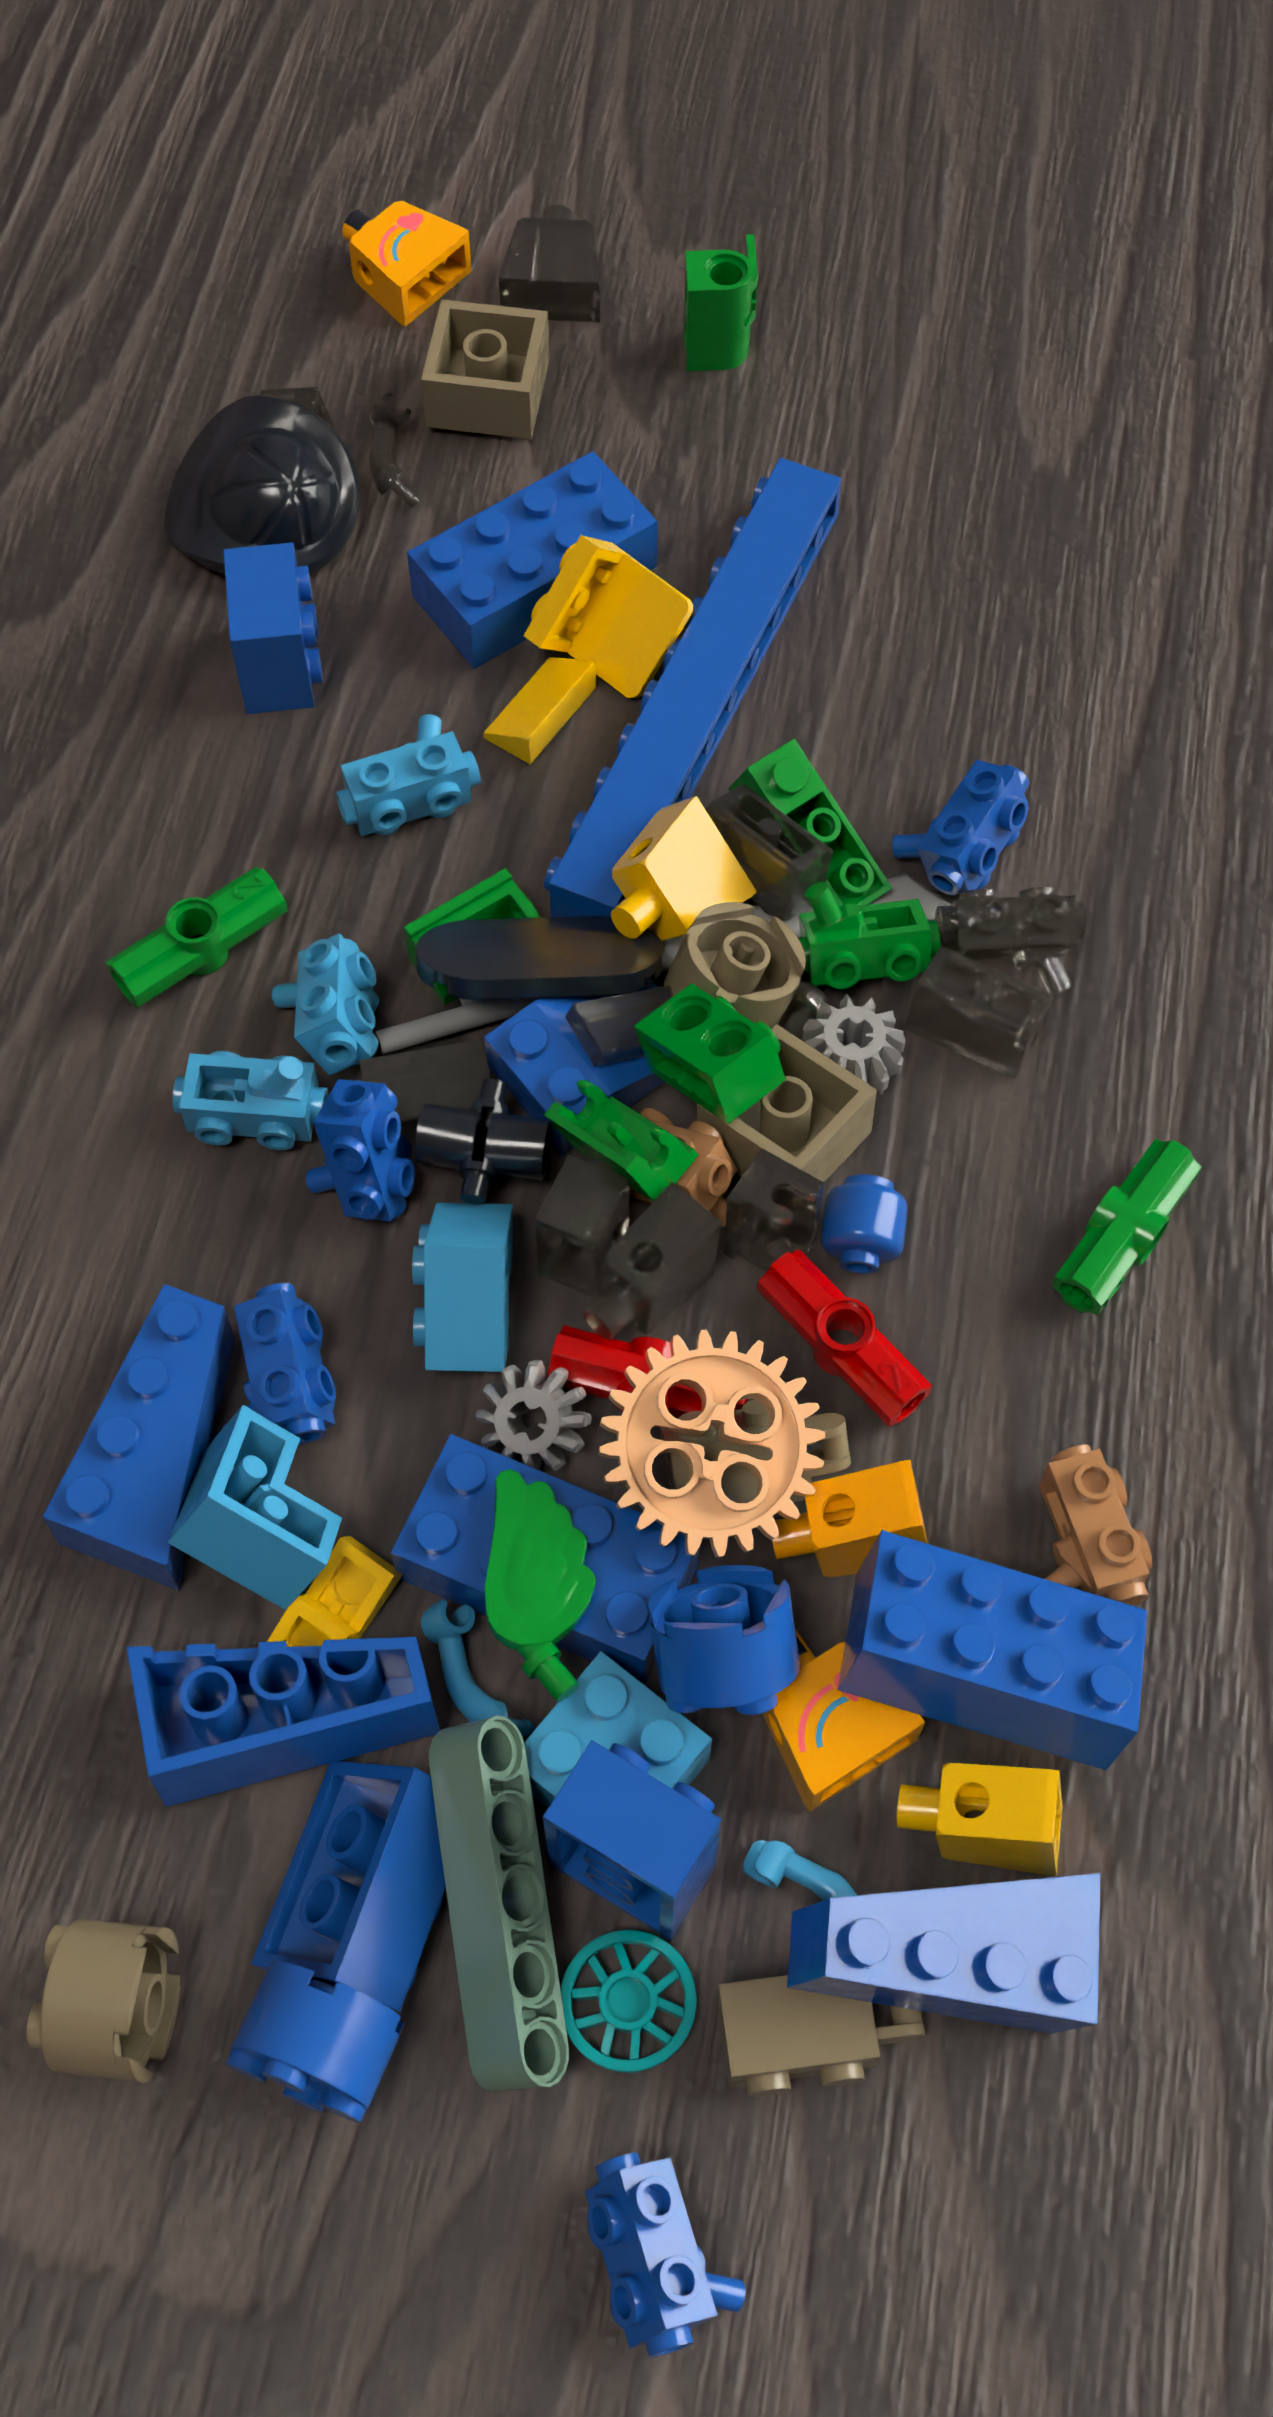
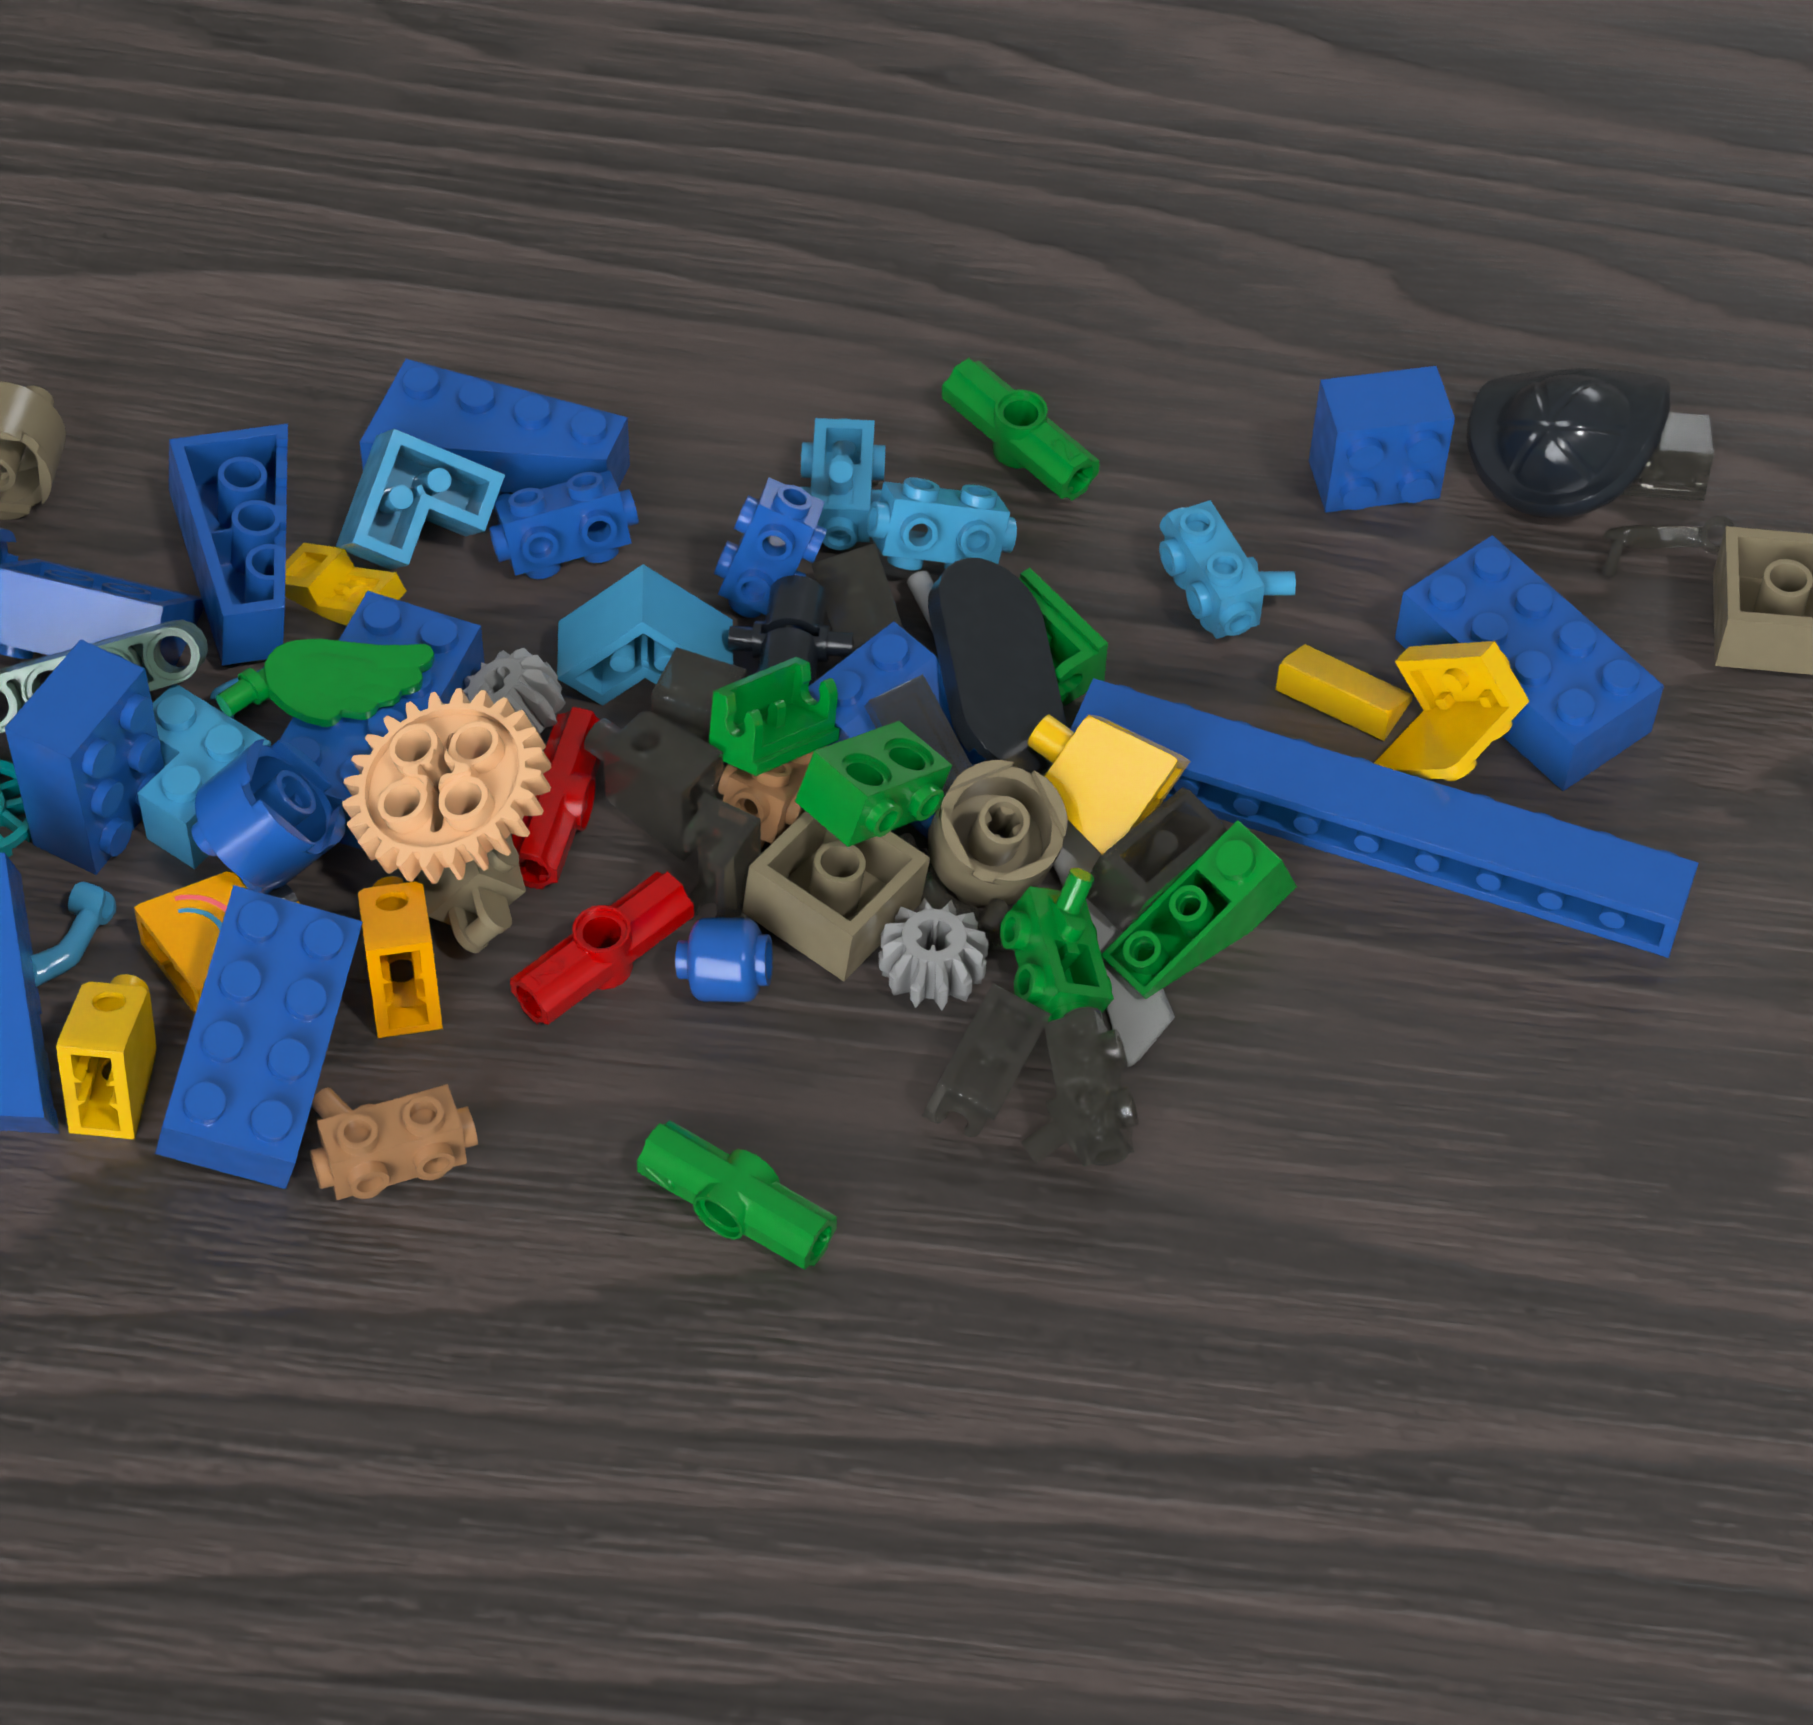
camera: 85 degrees right, 10 degrees down
(970, 829) = (1215, 1056): blue brick -> none

